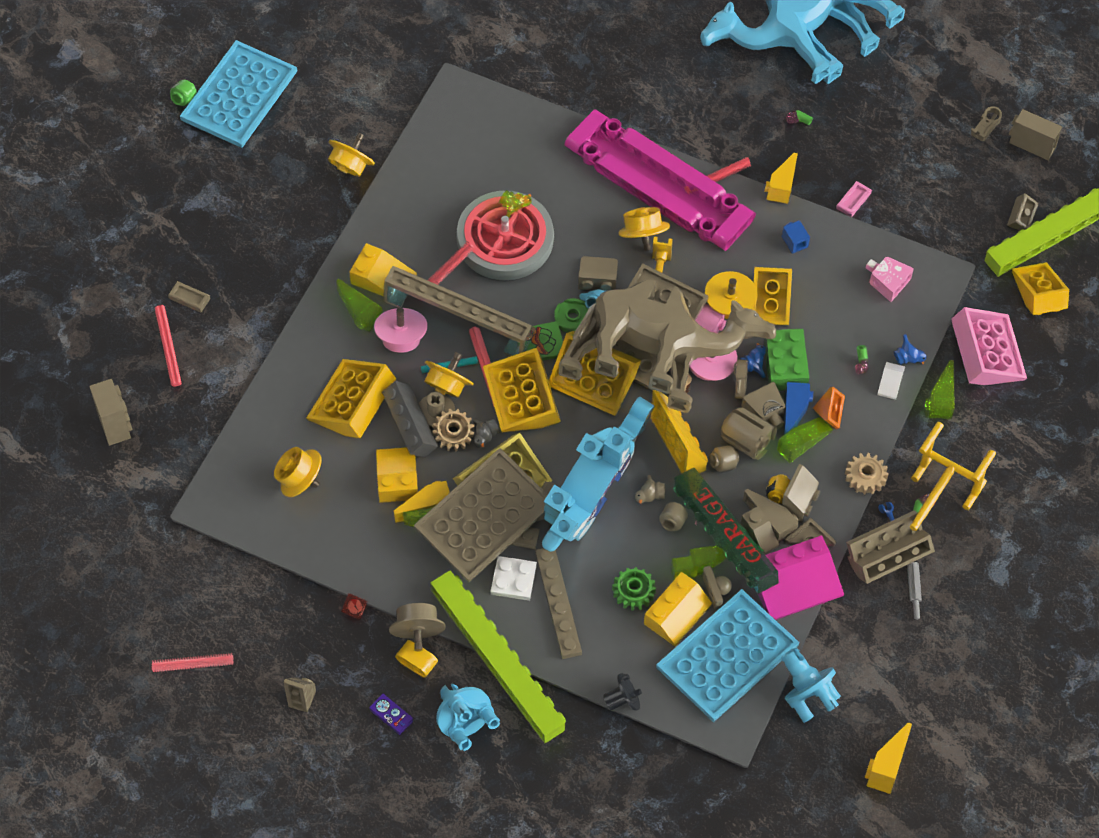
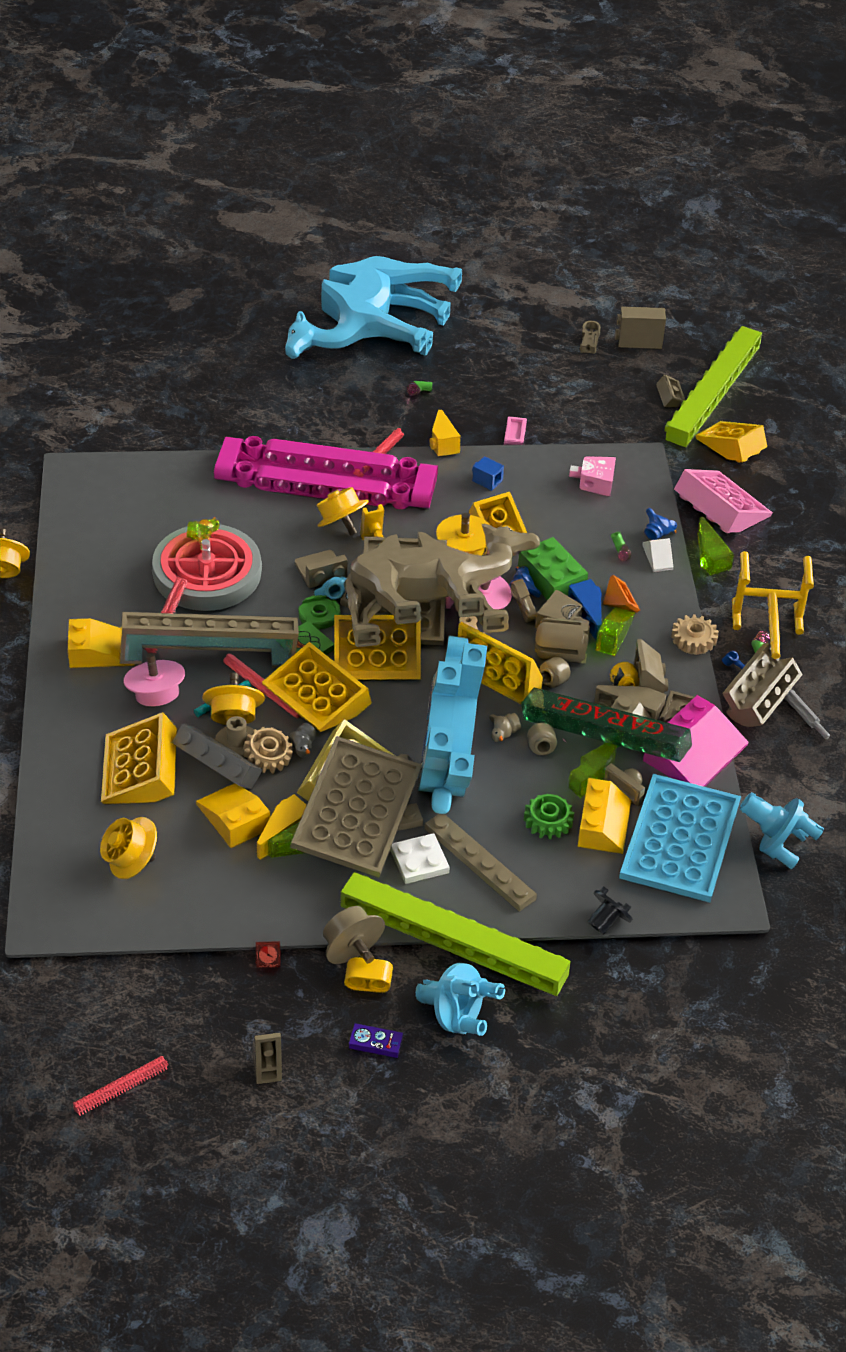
camera: 30 degrees left, 15 degrees down
(362, 309) = (96, 681): clear neon green slope -> none

